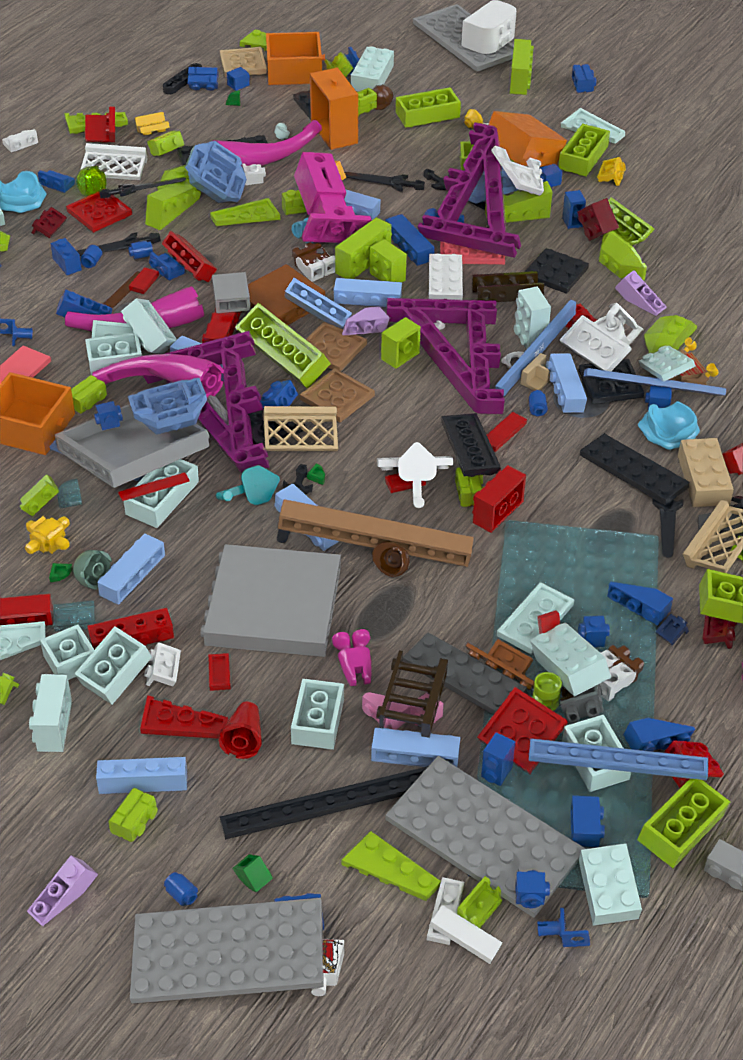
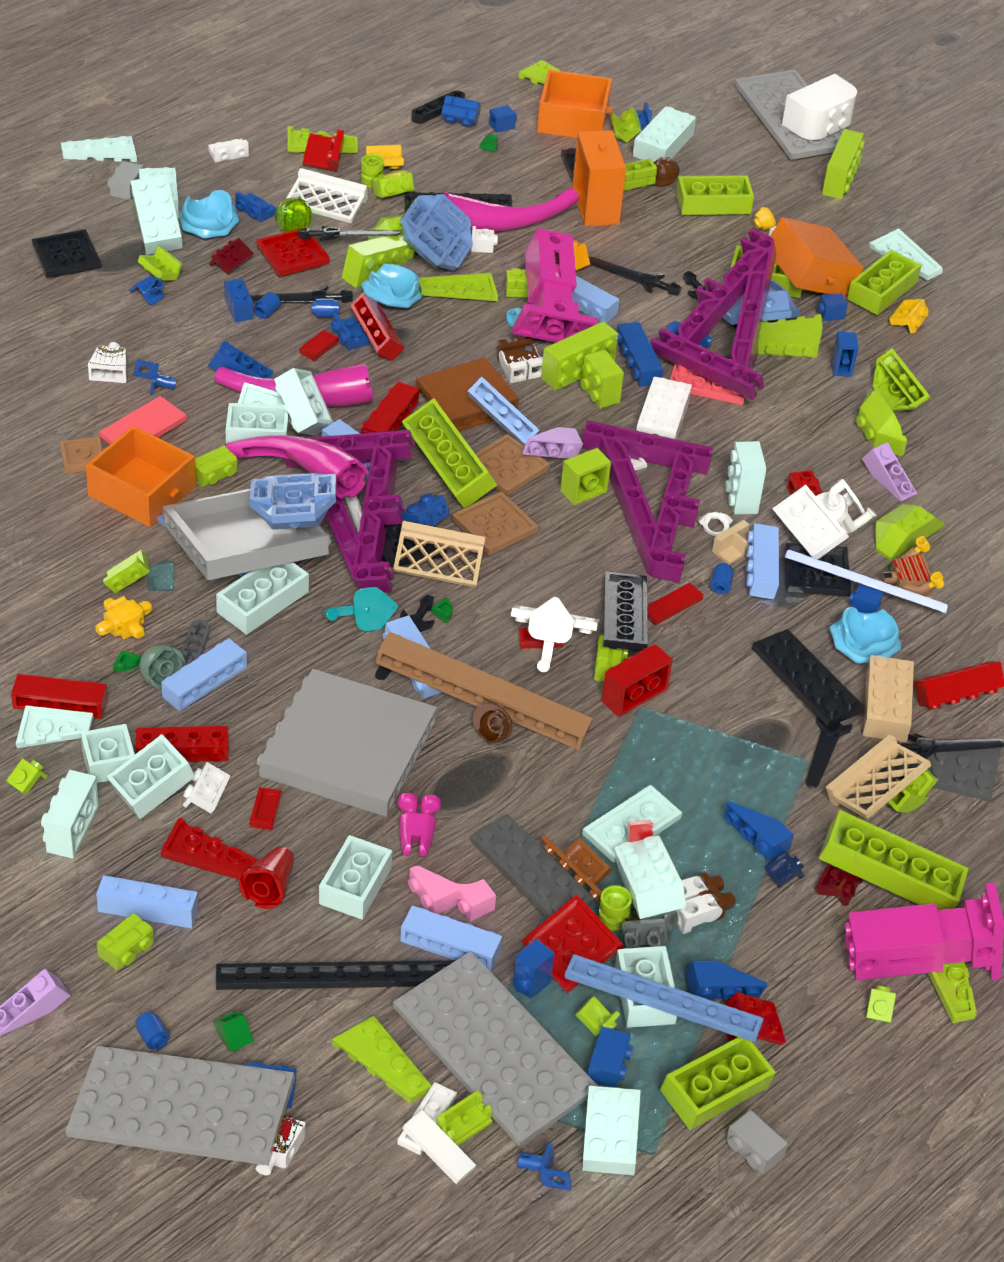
camera: 10 degrees right, 0 degrees up
(72, 614) = (127, 711): clear light blue plate -> none
(108, 415) = (226, 496): blue brick -> none
(111, 540) = (192, 638): none -> dark grey beam
(120, 293) = (288, 355): reddish brown sticker -> none
(144, 131) = (371, 166): none -> lime wheel
(154, 486) = (253, 587): red sticker -> none
(192, 222) = (393, 286): none -> medium azure piece
(231, 292) = (408, 379): light grey brick -> none
(248, 58) = (520, 96): tan plate -> none
(281, 131) = (532, 193): light aqua plate -> none
(365, 292) = (567, 407): light blue brick -> none
(429, 705) = (477, 894): dark brown fence -> none
(504, 286) = (724, 430): dark brown fence -> none
(523, 177) = (789, 304): white wing -> none
(531, 888) = (521, 1114): blue brick -> none
(537, 346) = (742, 512): medium blue tile -> none
(558, 270) = (800, 424): black plate -> none
(563, 788) = (595, 1016): none -> lime bracket
(583, 78) = (917, 191): blue brick -> none
(594, 630) = (691, 852): blue brick -> none
(597, 219) = (866, 372): dark red brick -> none
(666, 363) = (885, 561): light aqua plate -> none

